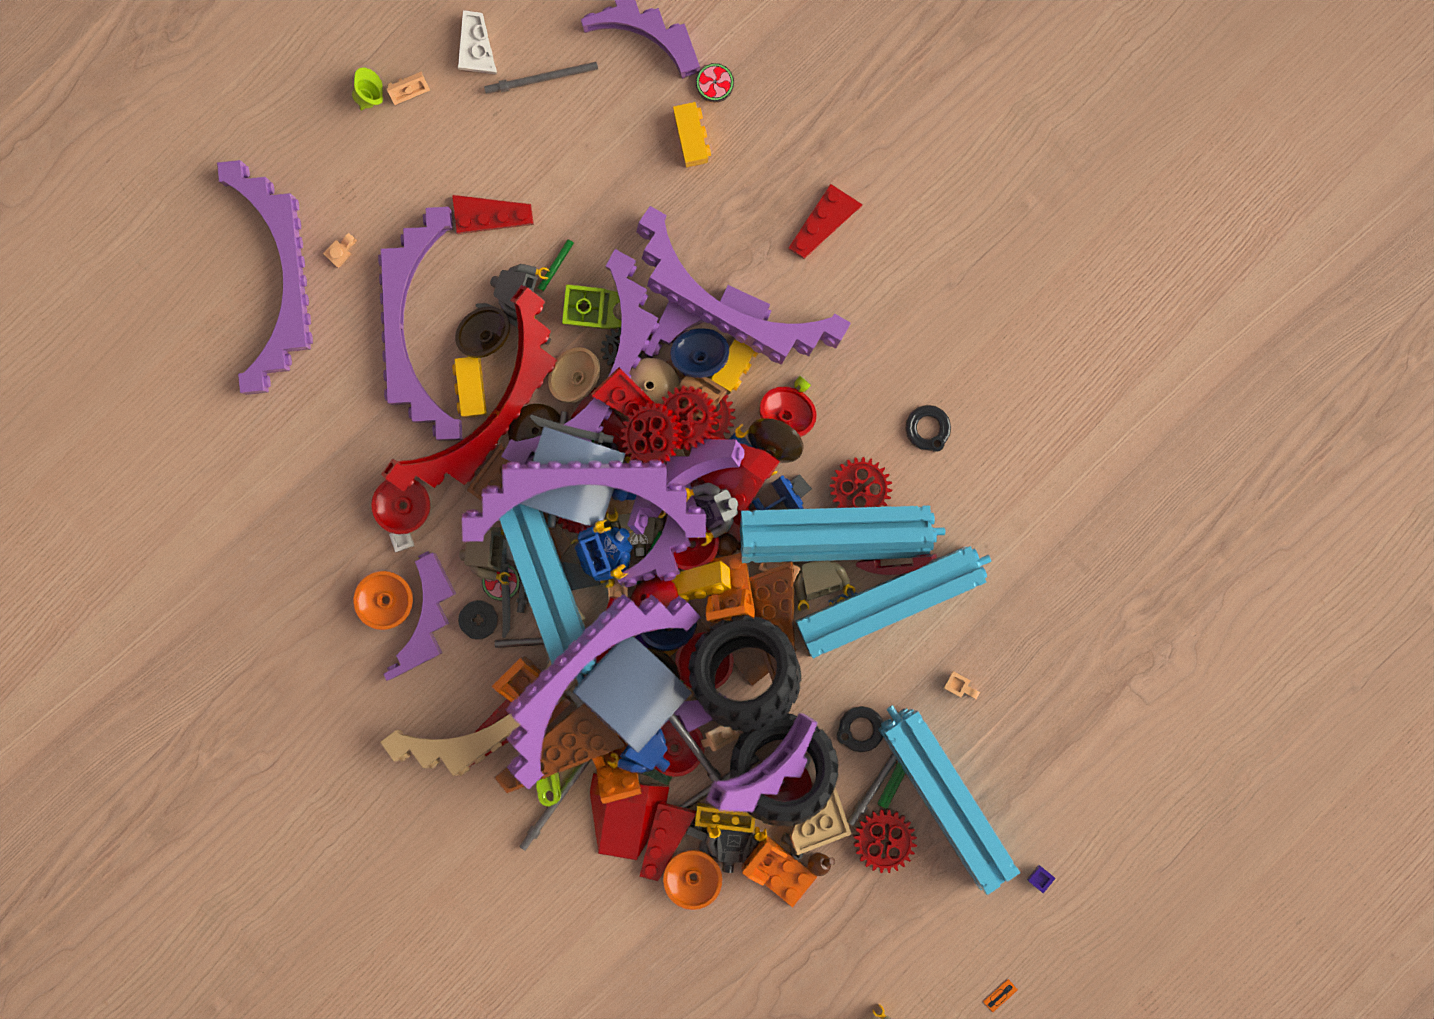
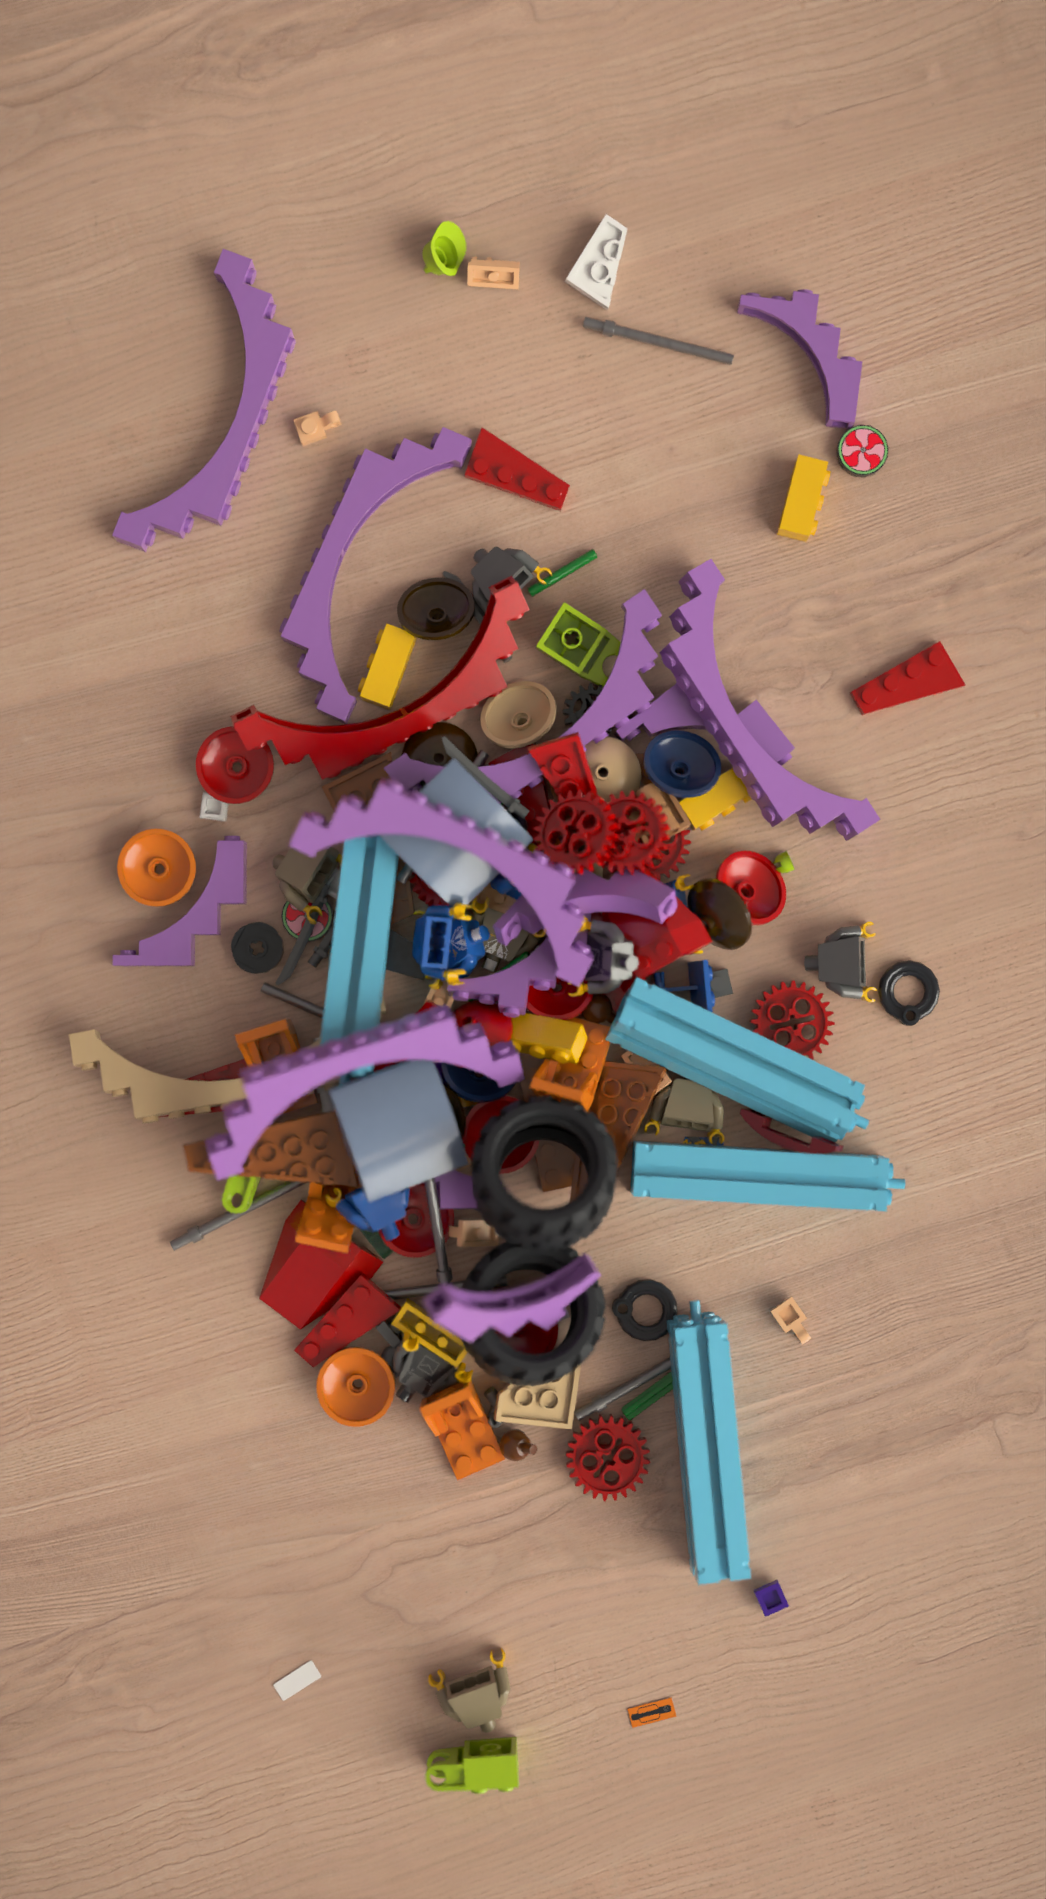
camera: 25 degrees right, 0 degrees up
(874, 431) = (843, 962): none -> dark grey torso

